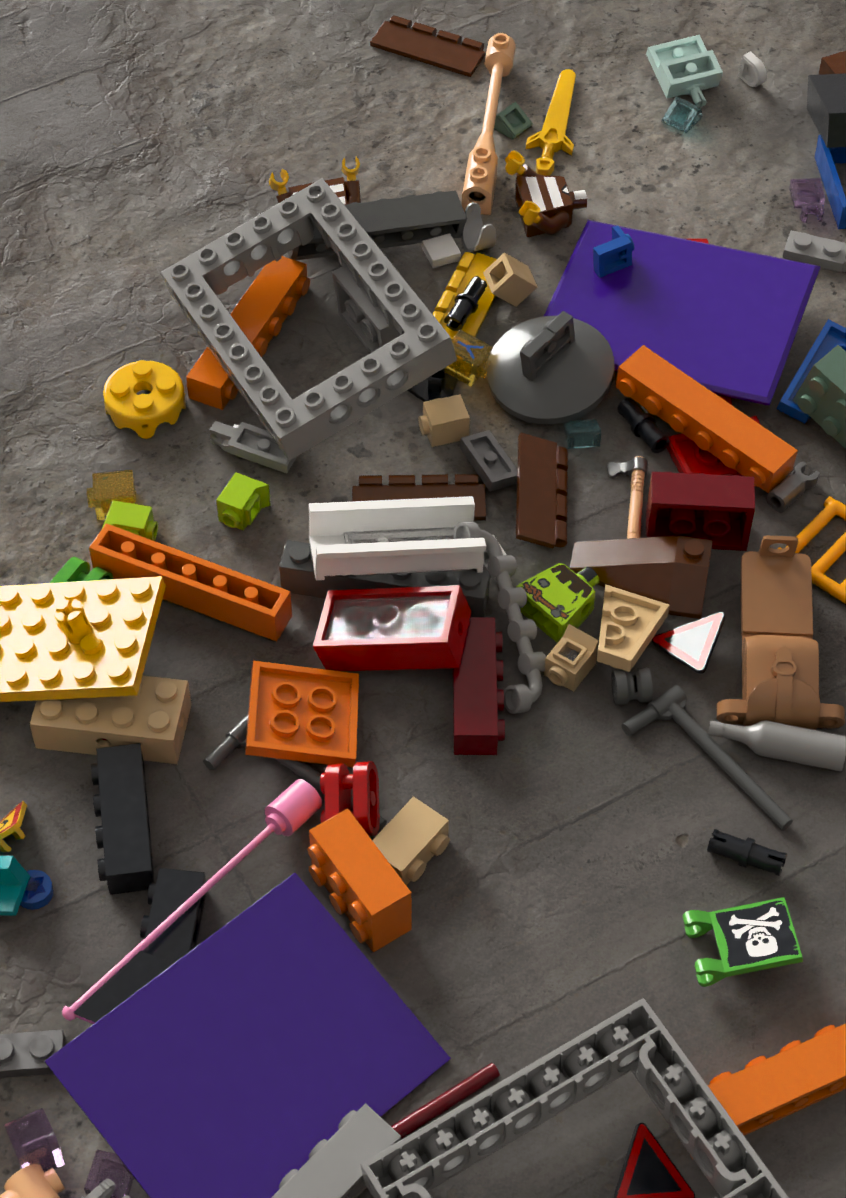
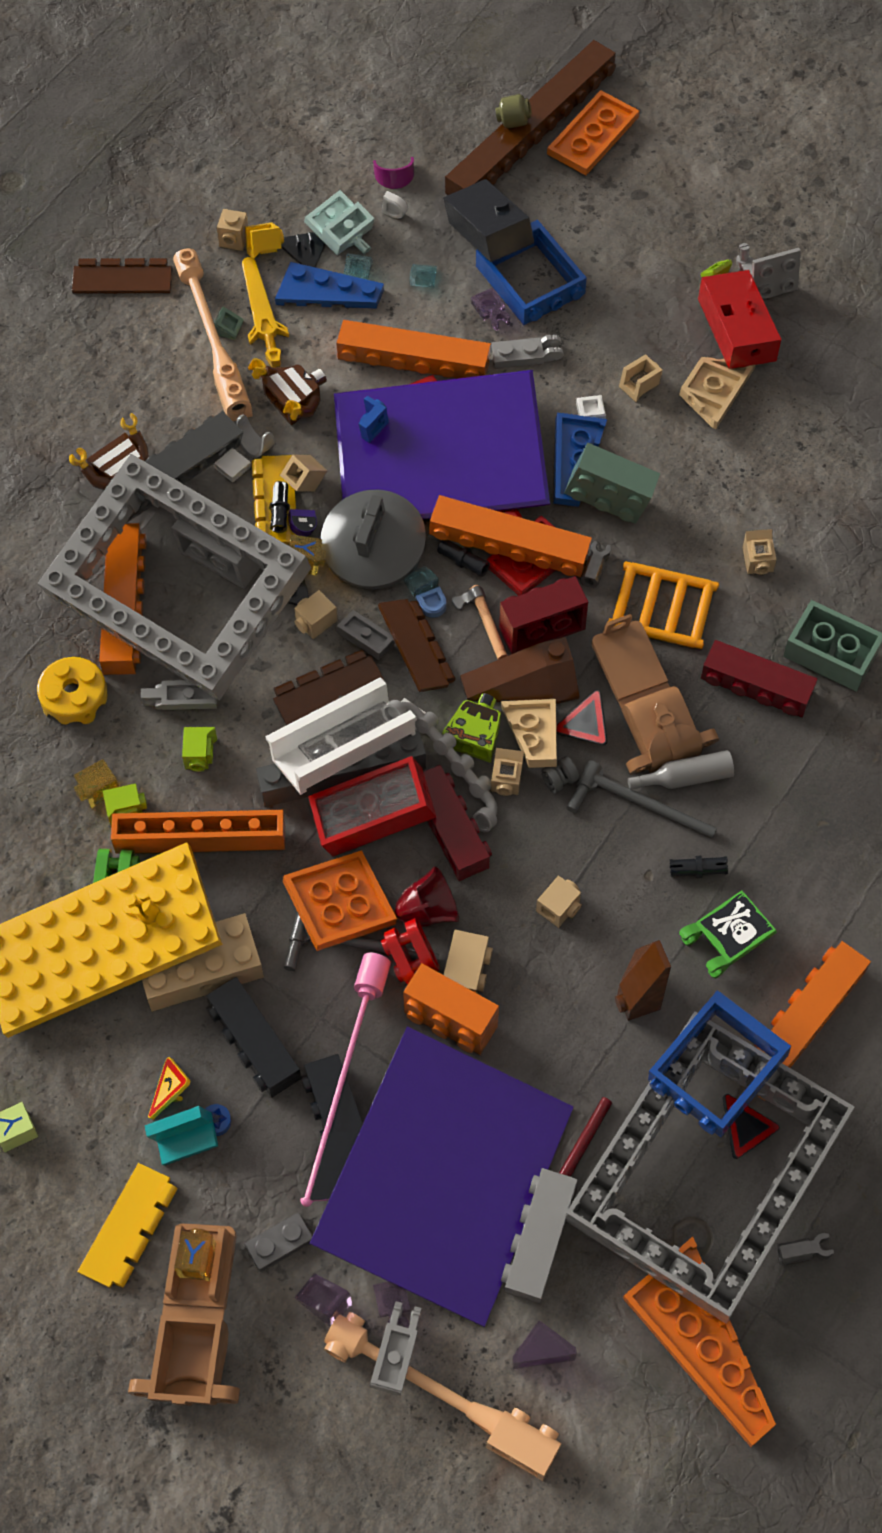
camera: 25 degrees left, 10 degrees up
(405, 755) = (428, 901): none -> dark red helmet
(484, 327) = (302, 521): none -> tile
(556, 820) = (559, 901): none -> tan brick
(566, 38) = (232, 230): none -> tan brick
(584, 458) = (432, 602): none -> medium blue tile
(594, 55) = (263, 239): none -> yellow window
(601, 948) = (644, 982): none -> reddish brown wedge
(634, 82) = (304, 248): none -> black piece
(638, 123) = (314, 285): none -> blue wing
(664, 1001) = (746, 1026): none -> blue window
(697, 207) = (412, 350): none -> orange brick
(749, 145) = (423, 275): none -> clear light blue slope
(770, 47) = (394, 178): none -> magenta helmet

